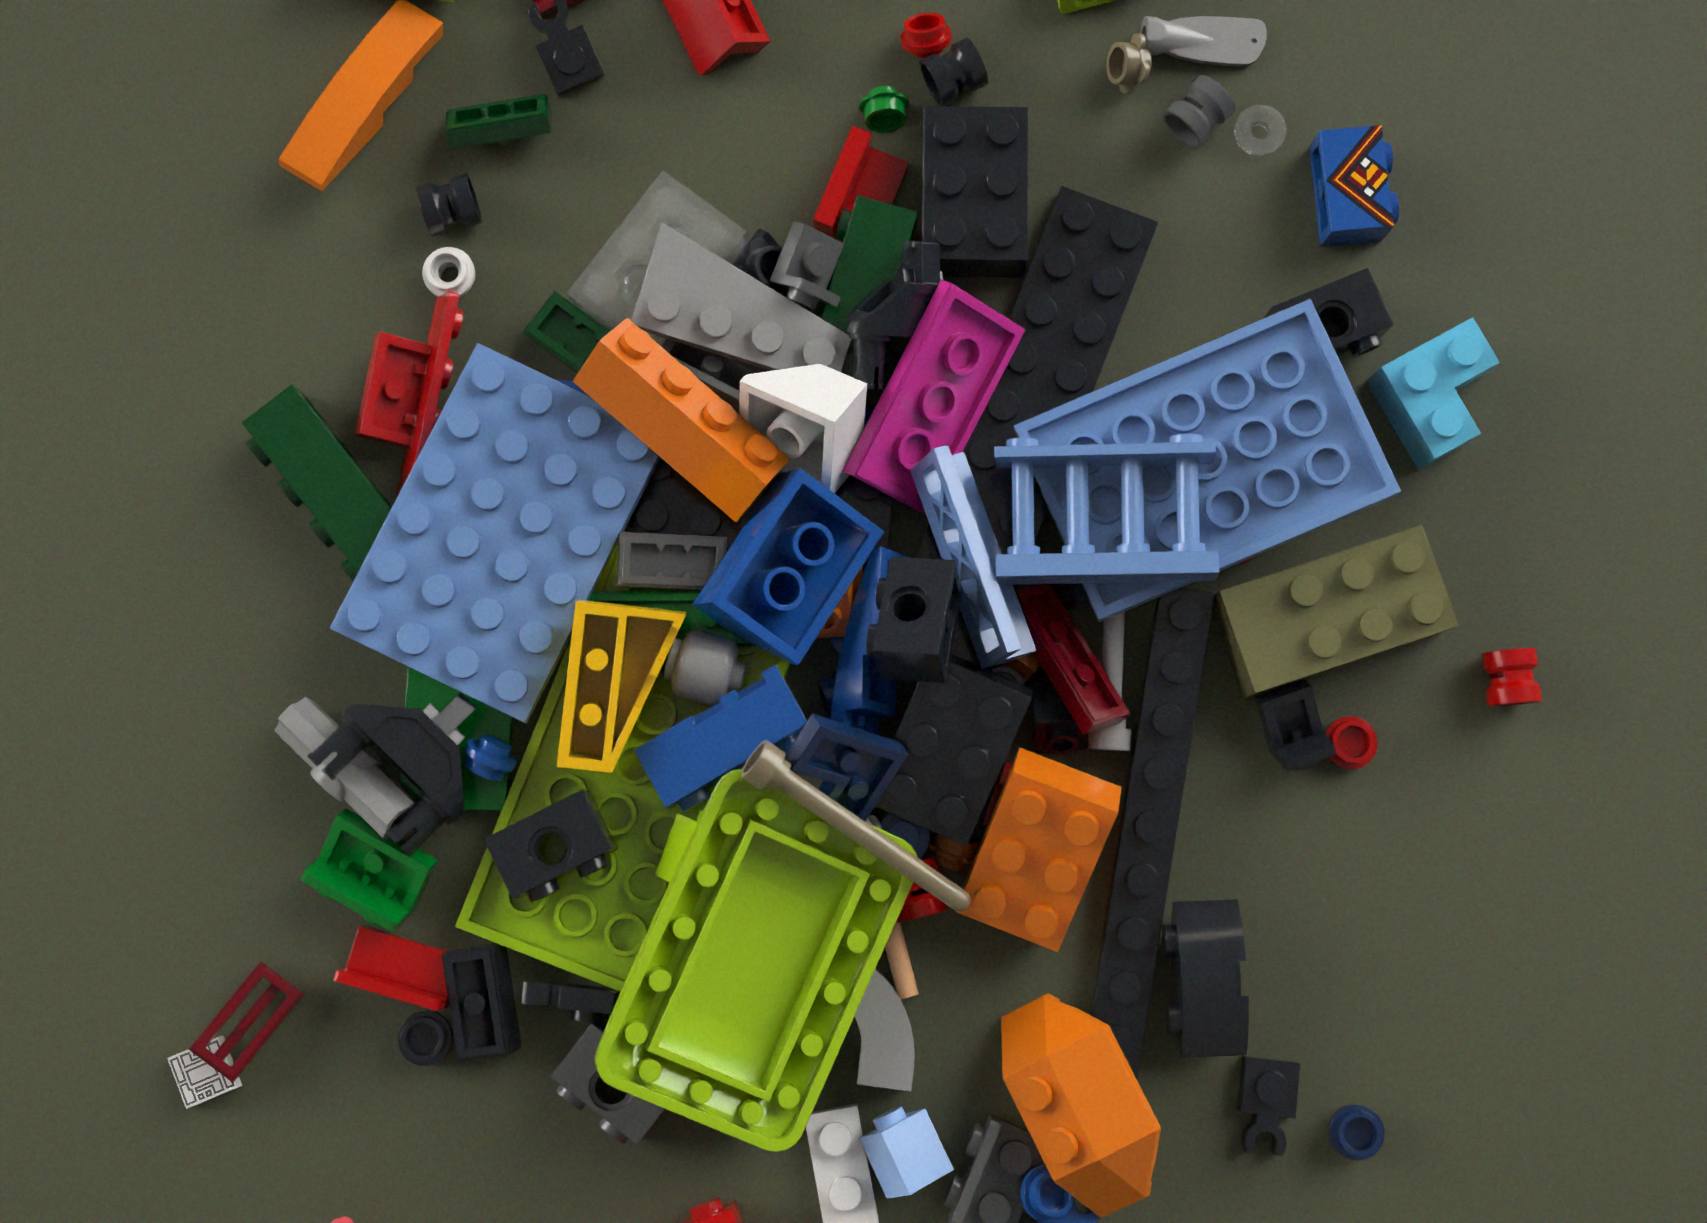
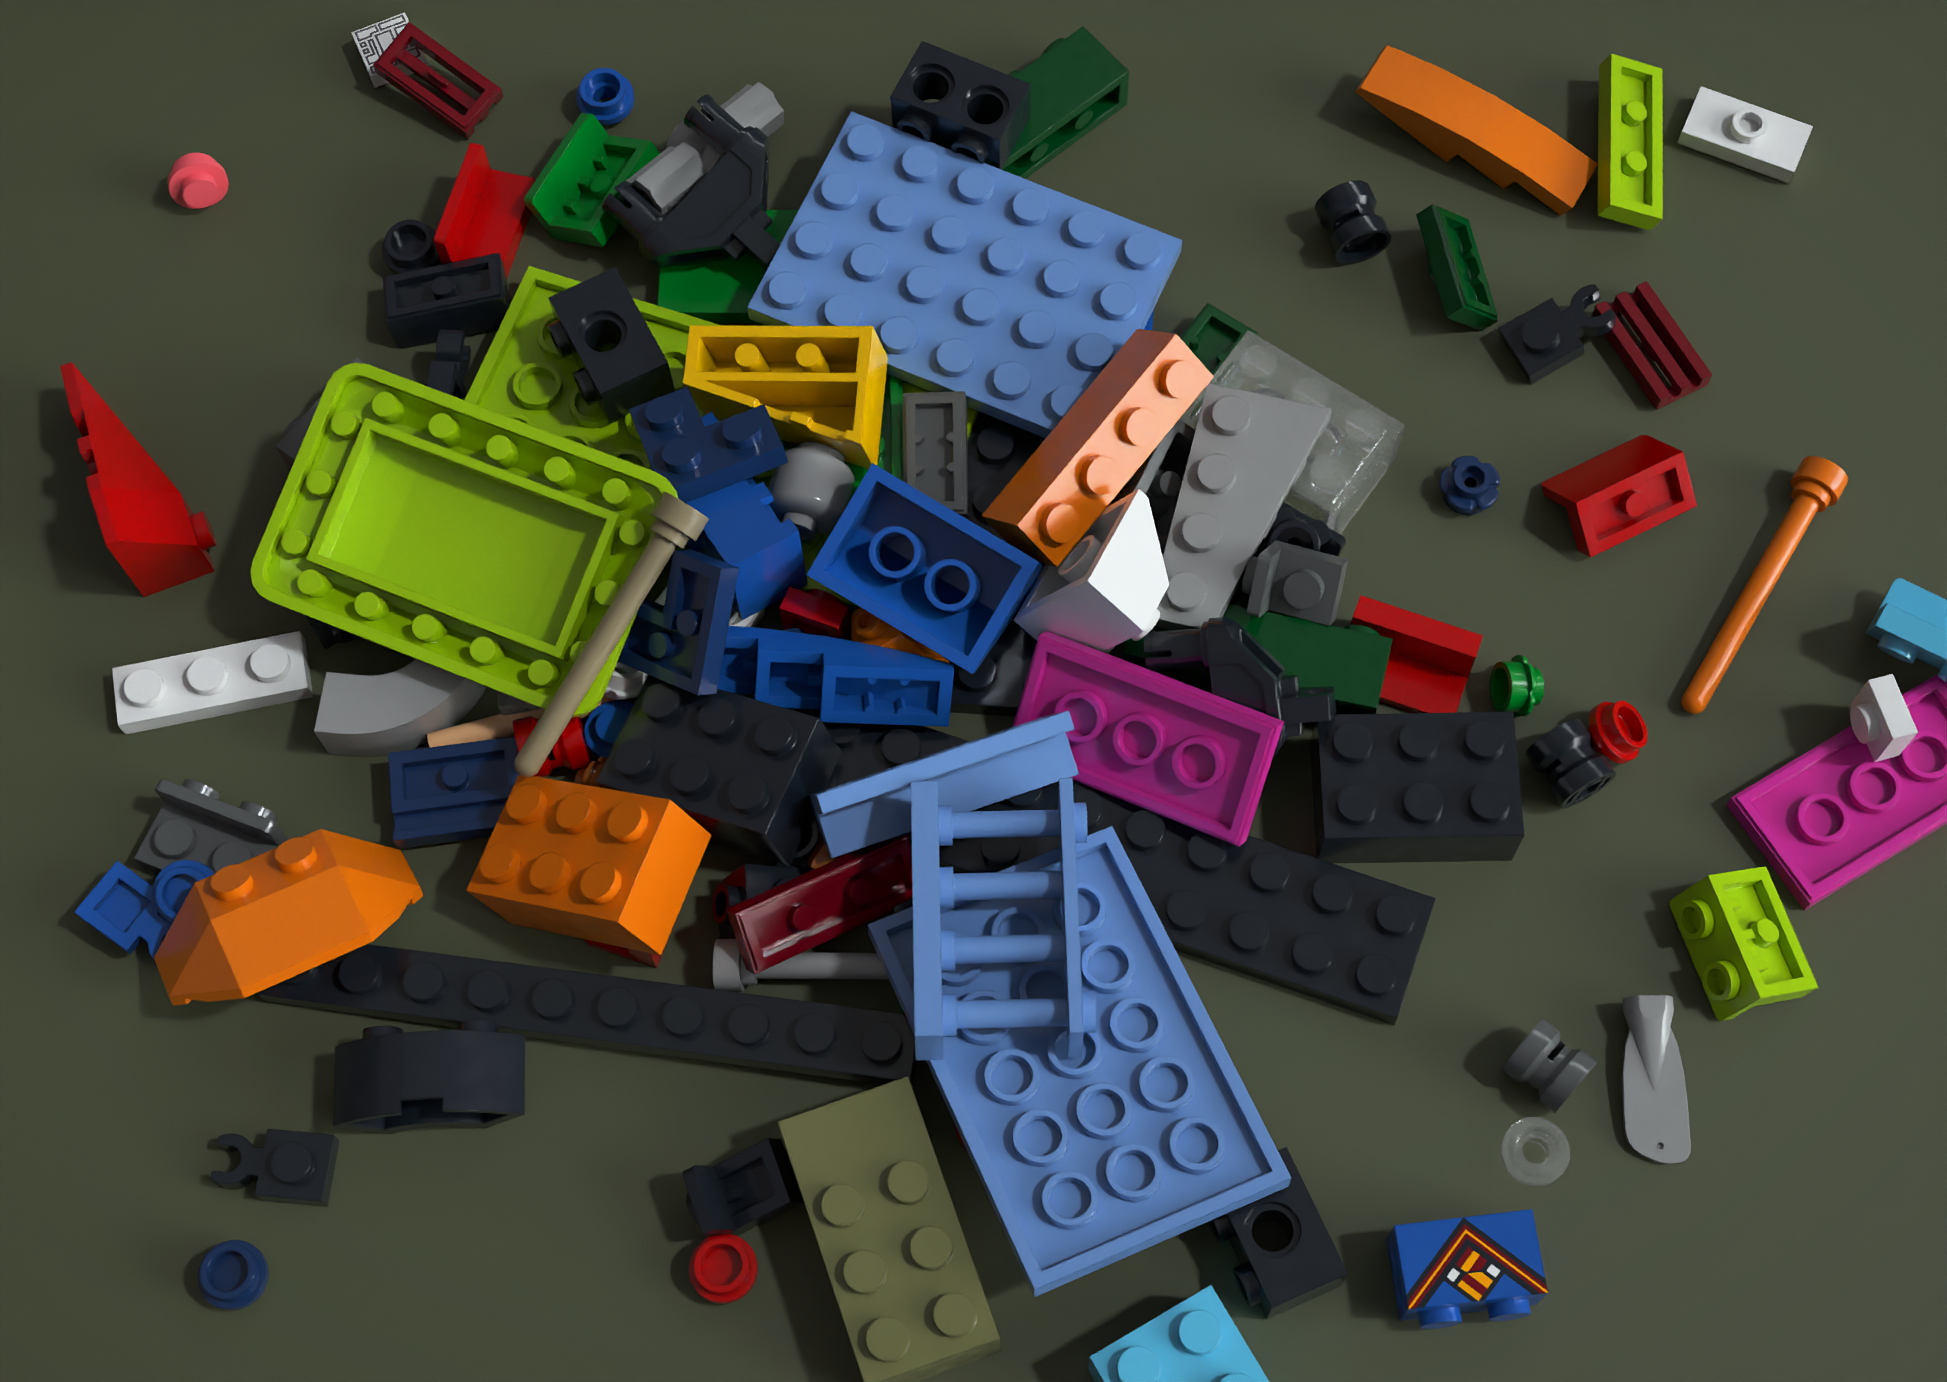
camera: 90 degrees right, 15 degrees down
(257, 864) = (605, 84): none -> blue plate
(319, 523) = (966, 96): none -> black brick
(406, 384) = (1146, 188): red bracket -> none
(443, 259) = (1279, 216): white plate -> none
(489, 757) = (712, 284): blue plate -> none
(691, 753) = (707, 457): none -> dark blue plate
(709, 140) = (1466, 499): none -> dark blue plate
(809, 670) = (815, 613): none -> red plate
(905, 1152) = (248, 734): light blue brick -> none
(920, 647) = (857, 696): black brick -> none
(955, 971) = (450, 791): none -> dark blue plate
(1129, 63) = (1606, 977): dark tan plate -> none

